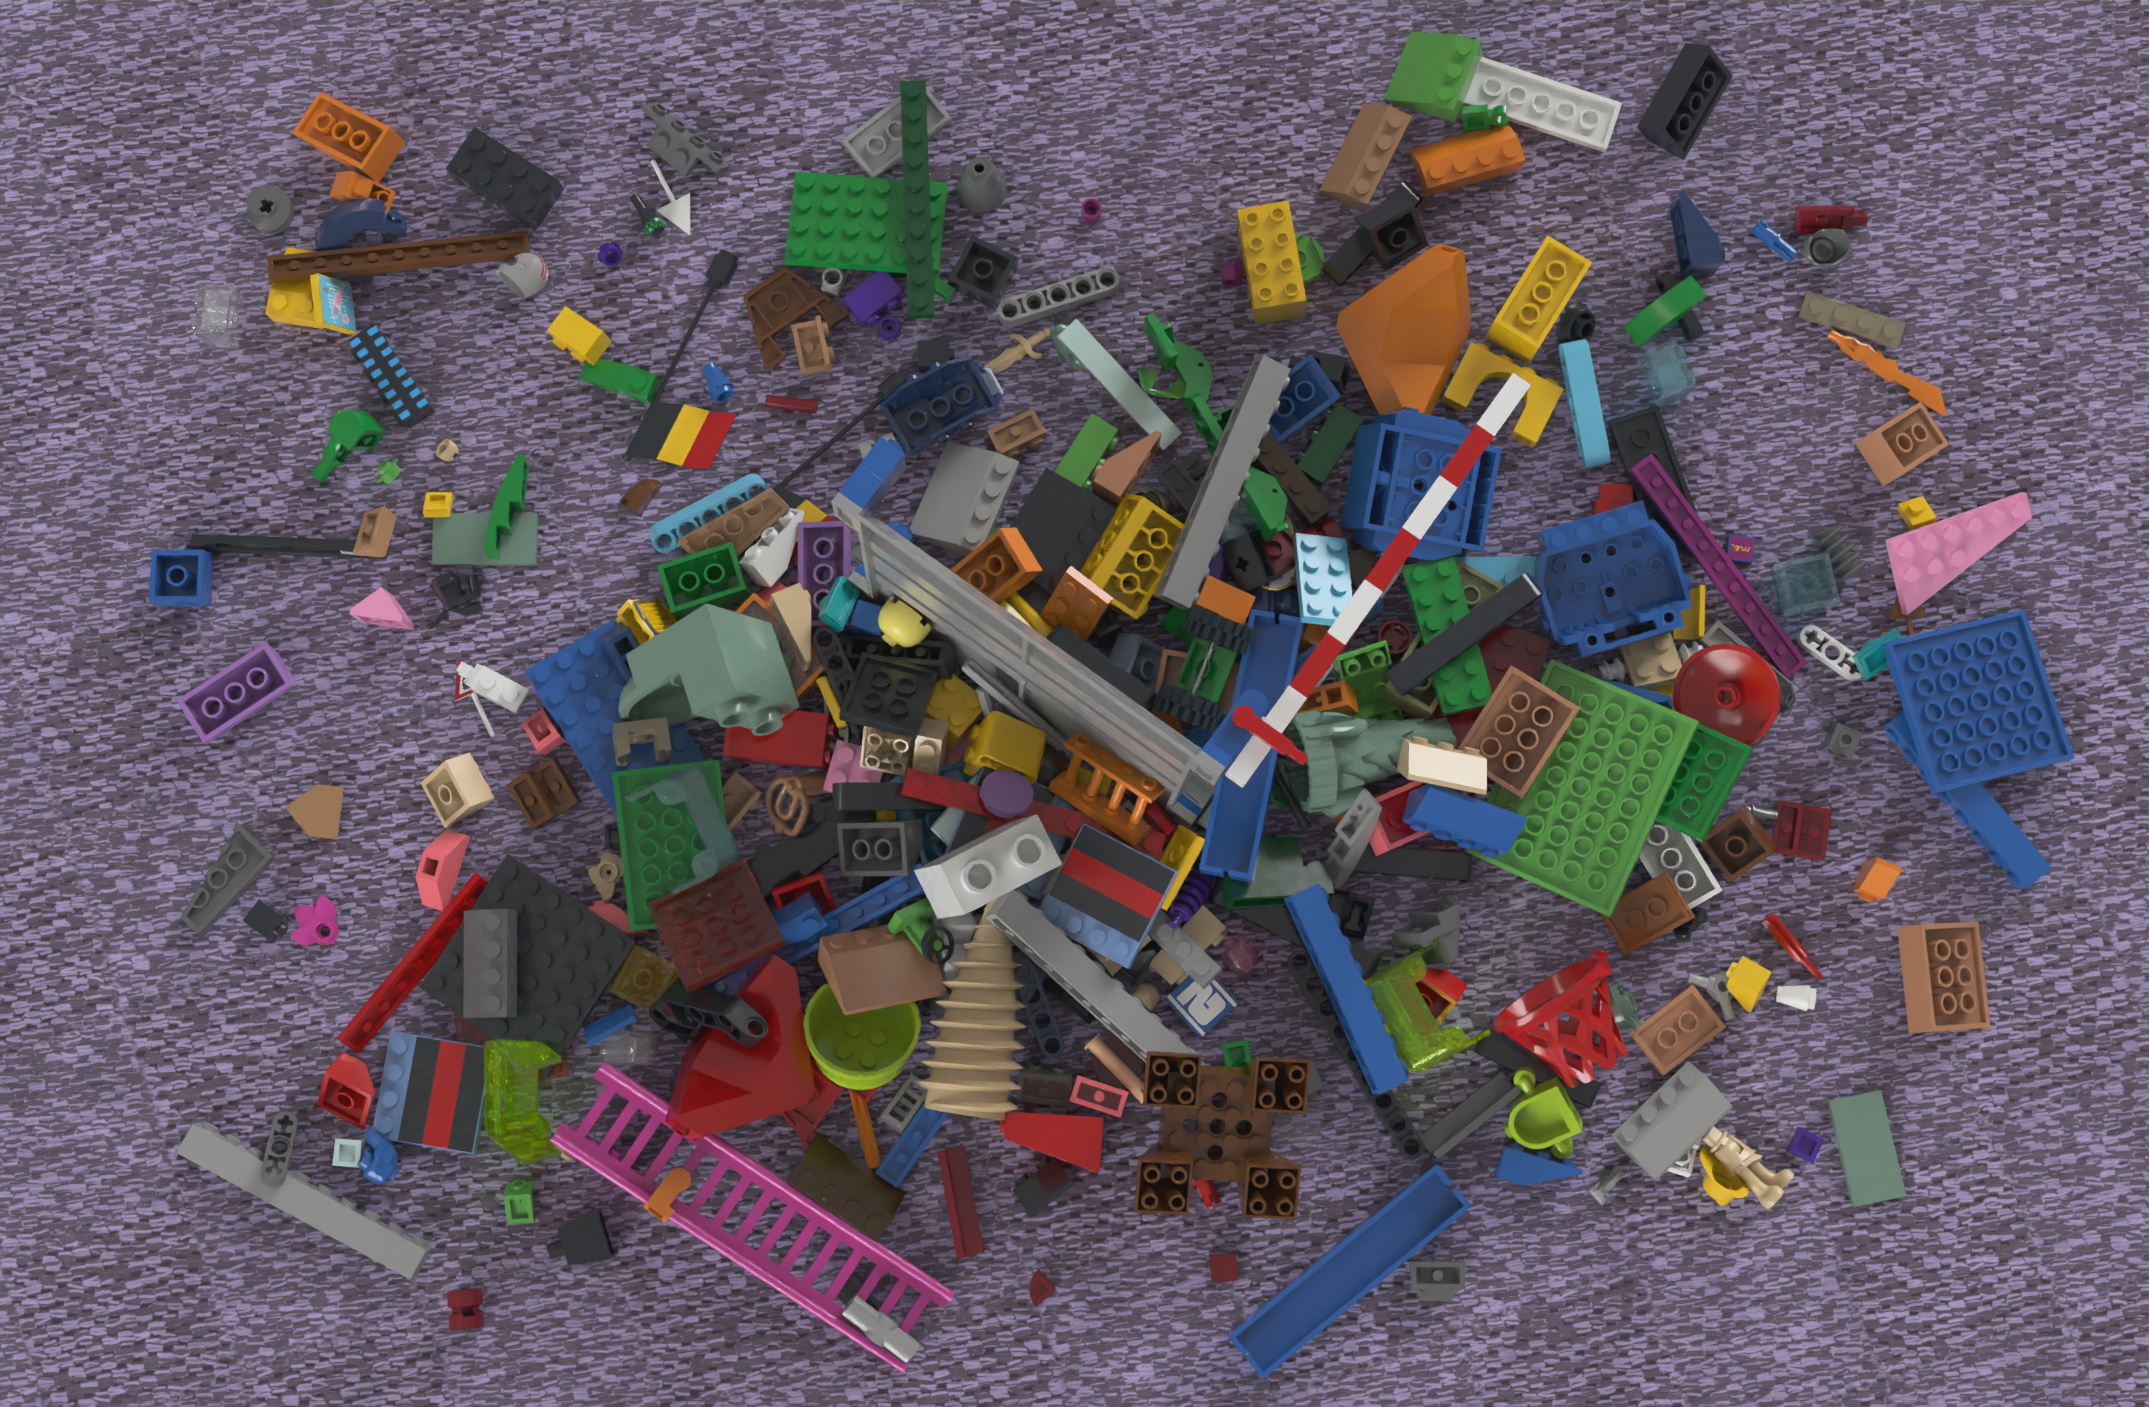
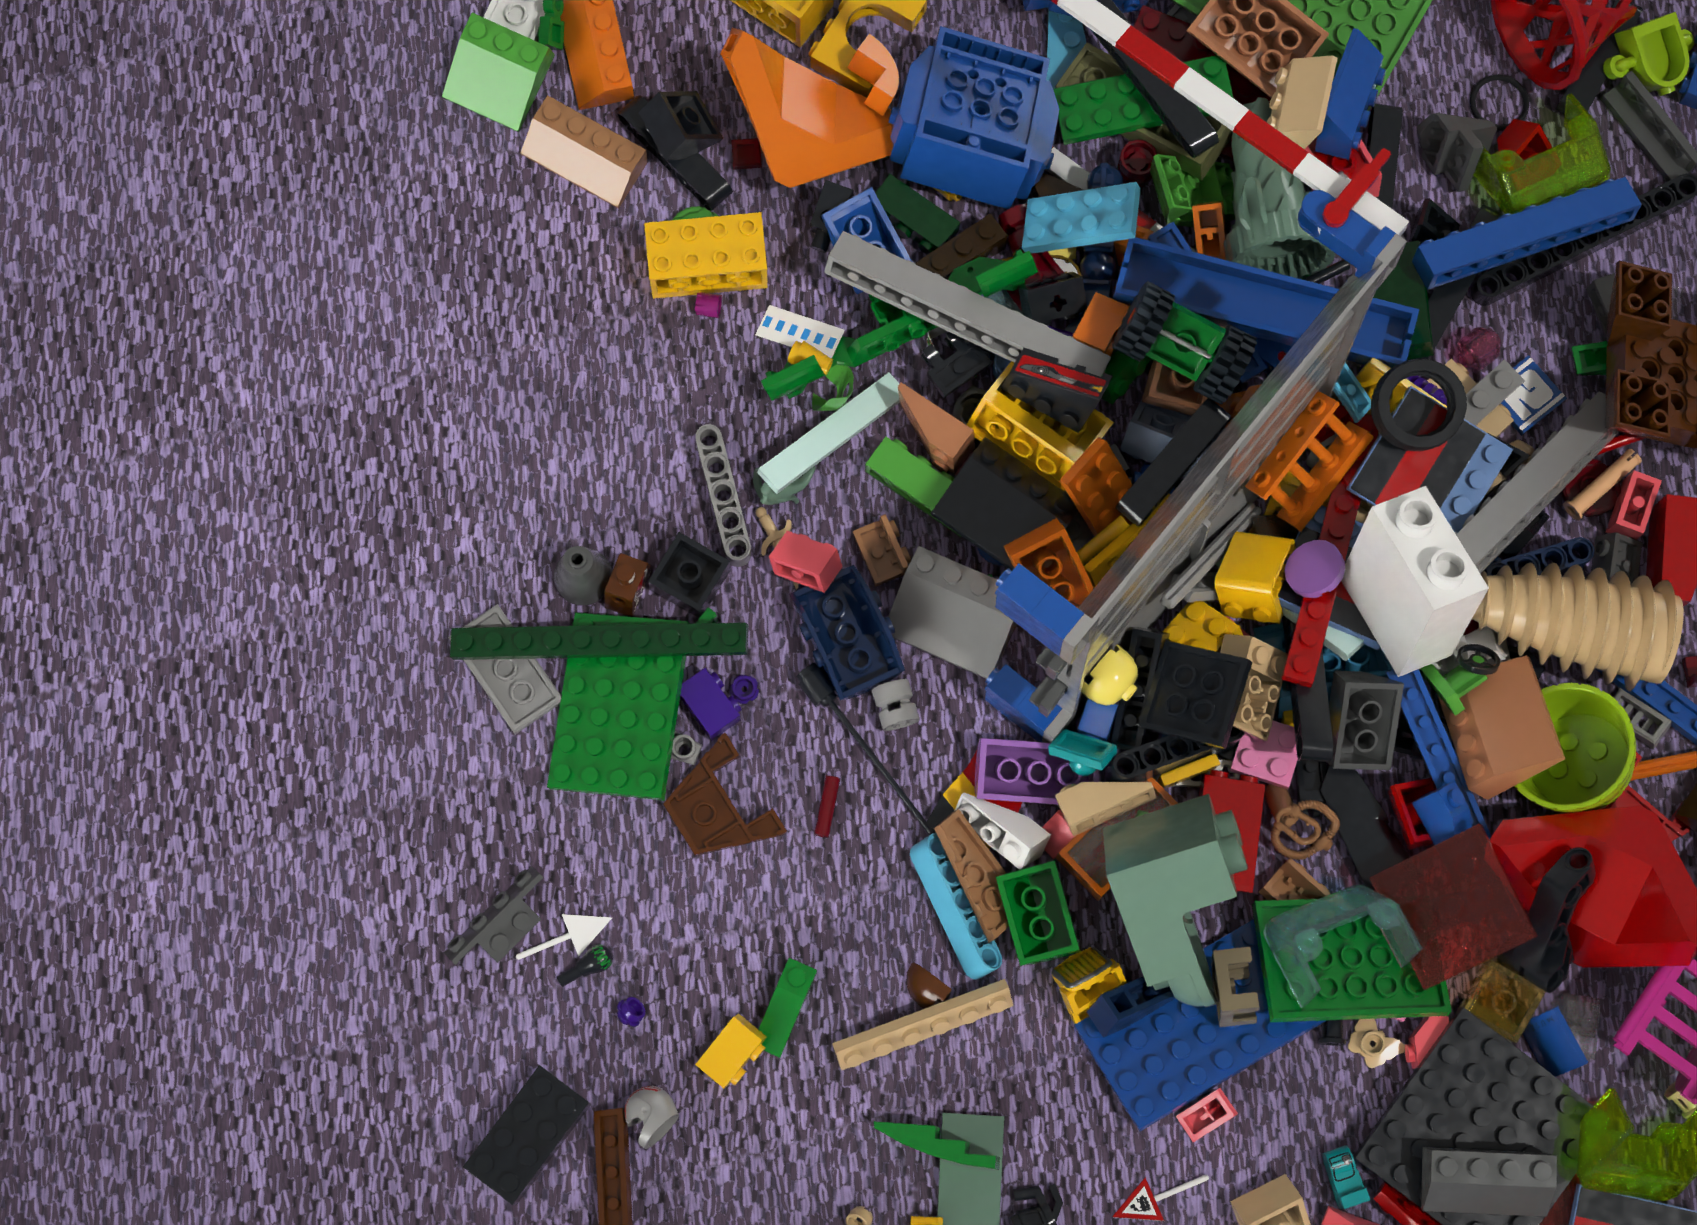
camera: 90 degrees left, 5 degrees down
(492, 849) = (1344, 1177): none -> teal leg
(494, 686) = (1149, 1171): white hinge -> none
(544, 793) = (1277, 1117): reddish brown slope -> none
(608, 492) = (923, 1024): none -> tan plate
(680, 431) = (851, 940): flag -> none
(718, 384) = (798, 890): blue cone -> none
(812, 346) = (761, 776): medium nougat bracket -> none
(933, 352) = (783, 637): black brick -> none
(975, 220) = (627, 584): none -> reddish brown torso
(999, 367) = (805, 561): none -> coral brick
(1094, 204) = (619, 446): magenta hose -> none
(1123, 864) = (1443, 377): none -> black tyre
(1155, 557) = (1054, 388): none -> black wedge
(1176, 821) = (1352, 394): none -> medium azure slope
(1188, 355) = (804, 350): none -> yellow cone
(1212, 353) = (789, 327): none -> white sticker
(1463, 394) = (877, 67): none -> orange brick
(1511, 971) = (1503, 78): none -> black tyre

